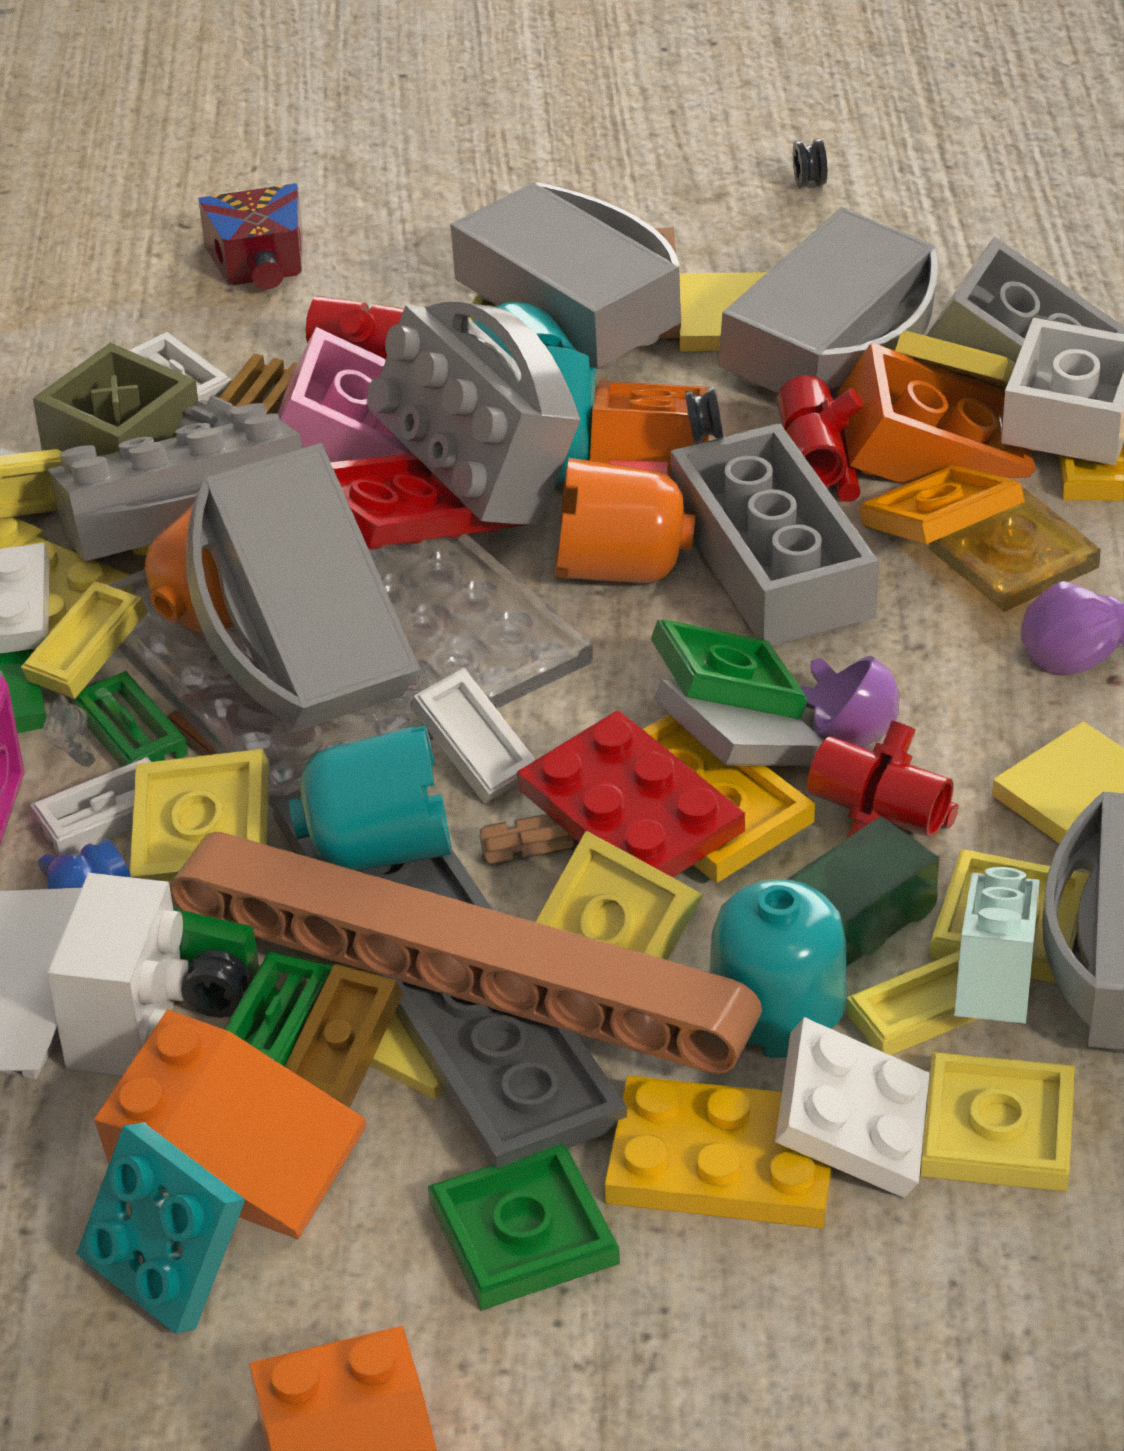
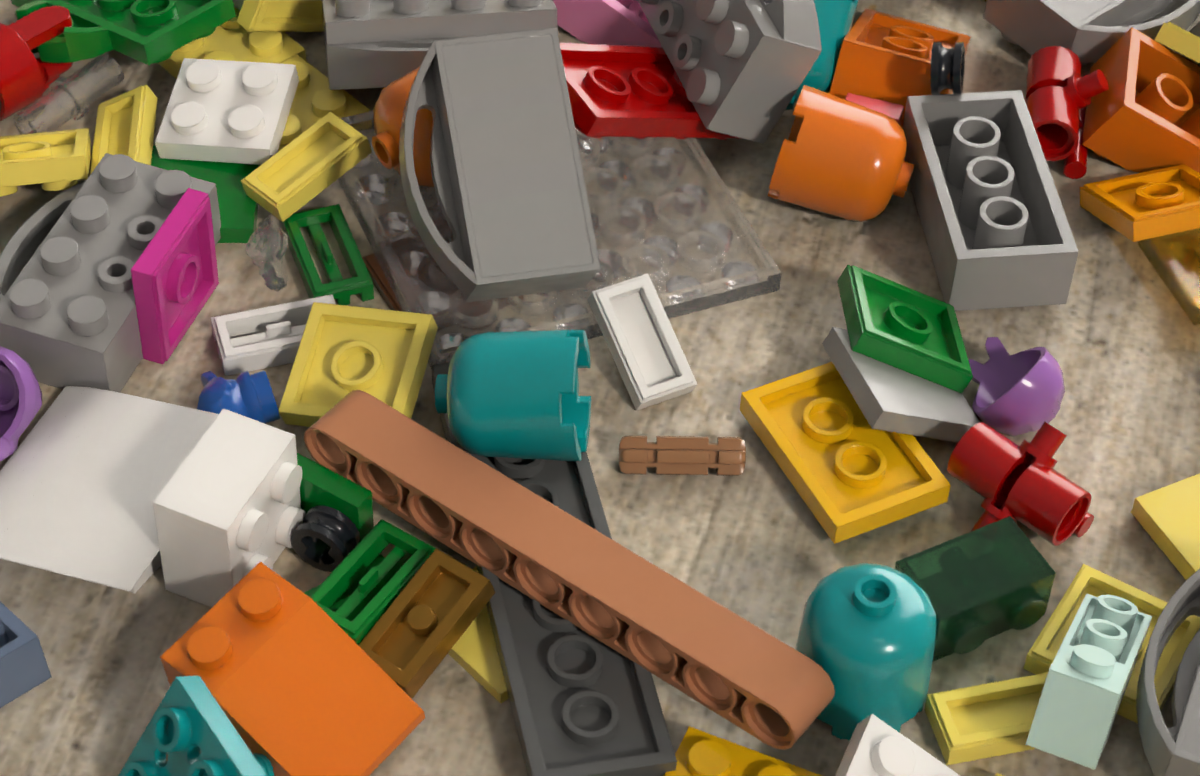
camera: 10 degrees right, 5 degrees up
(619, 900) = (726, 549): light yellow plate -> none
(631, 795) = (771, 445): red plate -> none

